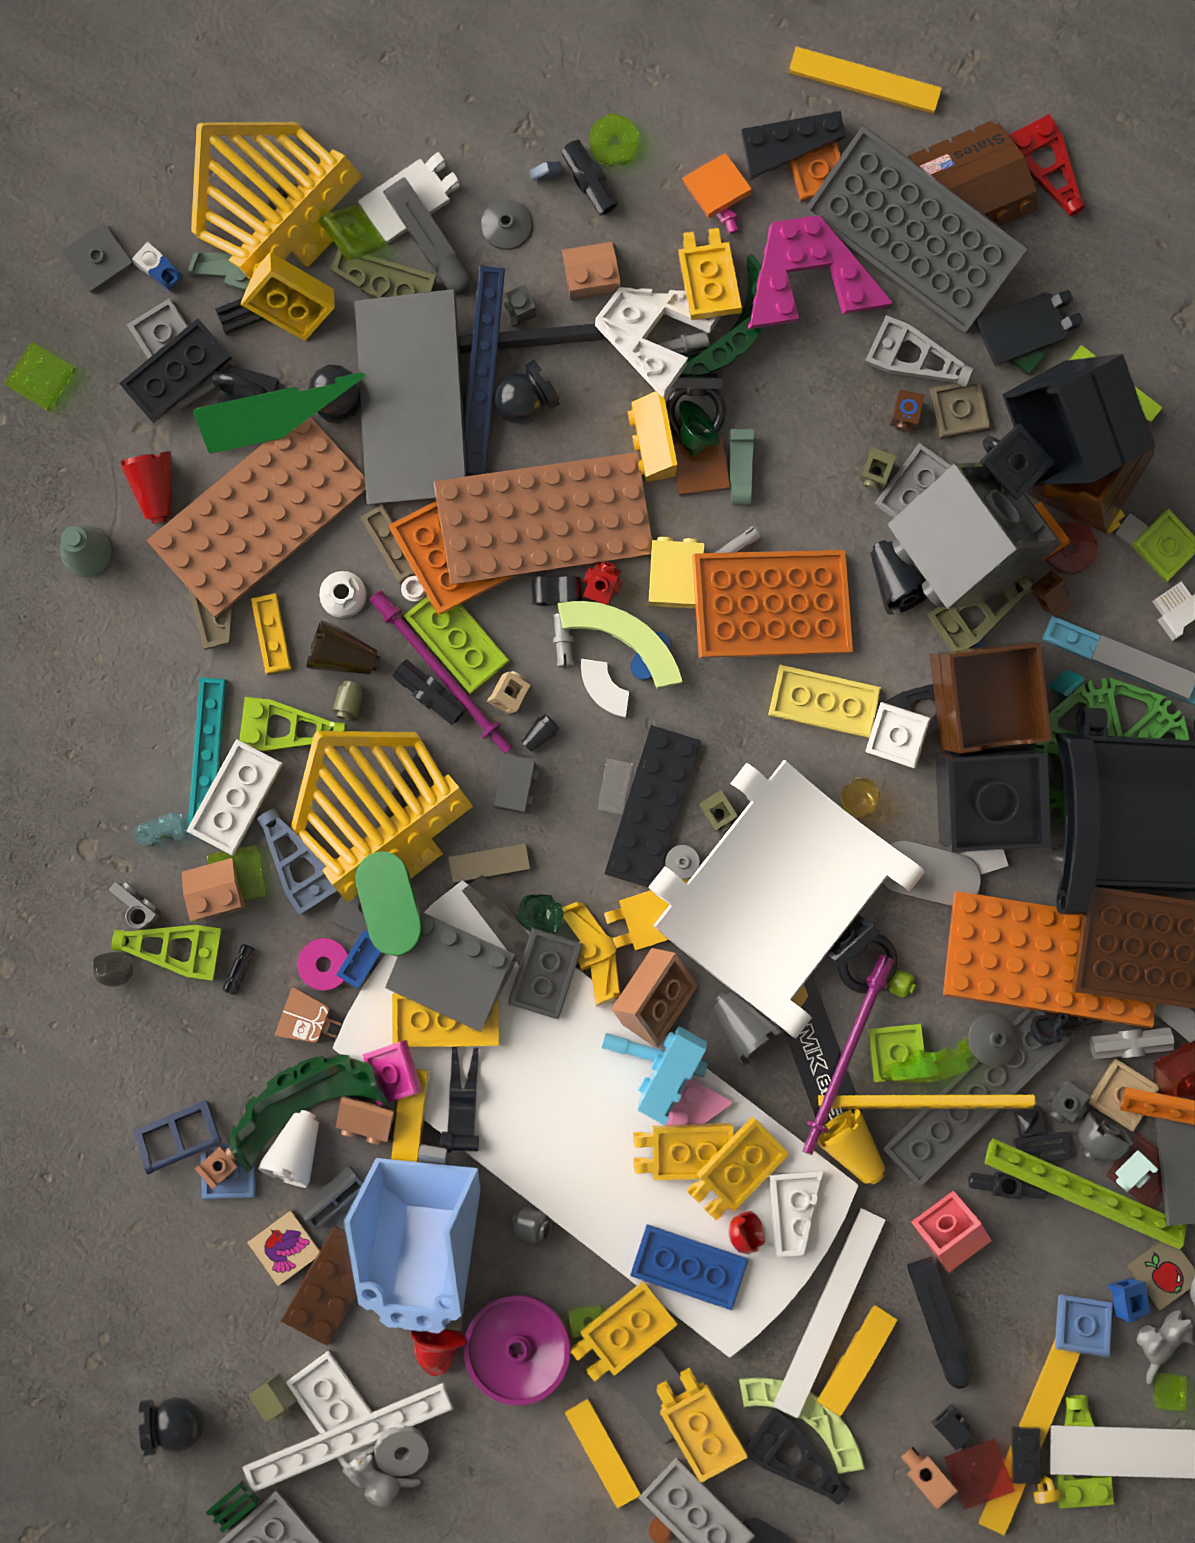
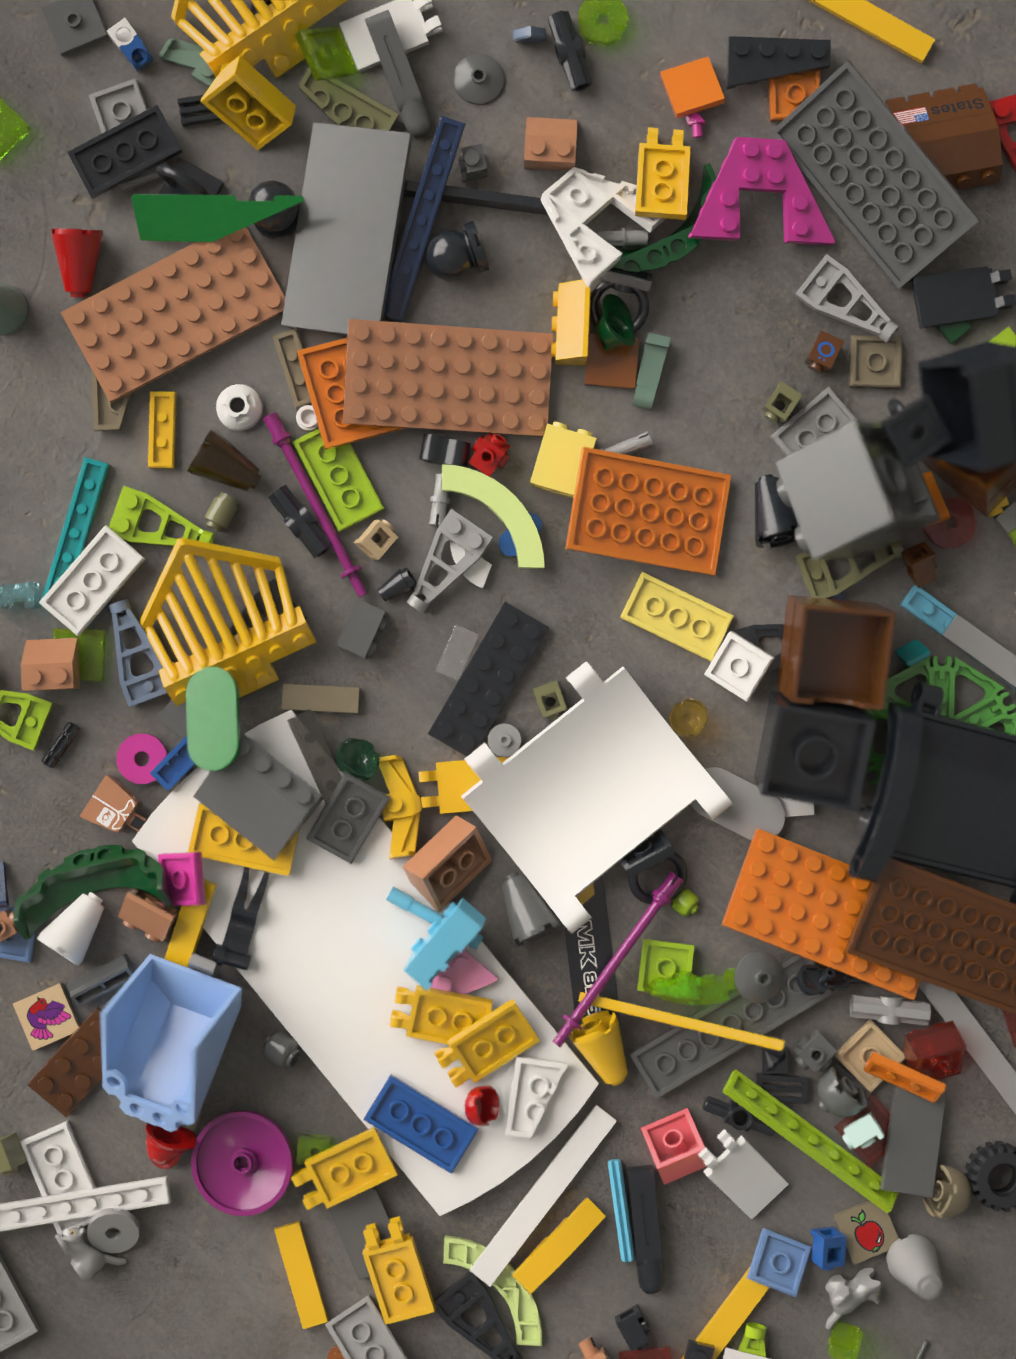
camera: 15 degrees right, 5 degrees up
(594, 666) = (464, 533): none -> light grey plate
(911, 1310) = (621, 1210): none -> medium azure axle
(1026, 1243) = (743, 1175): none -> white tile

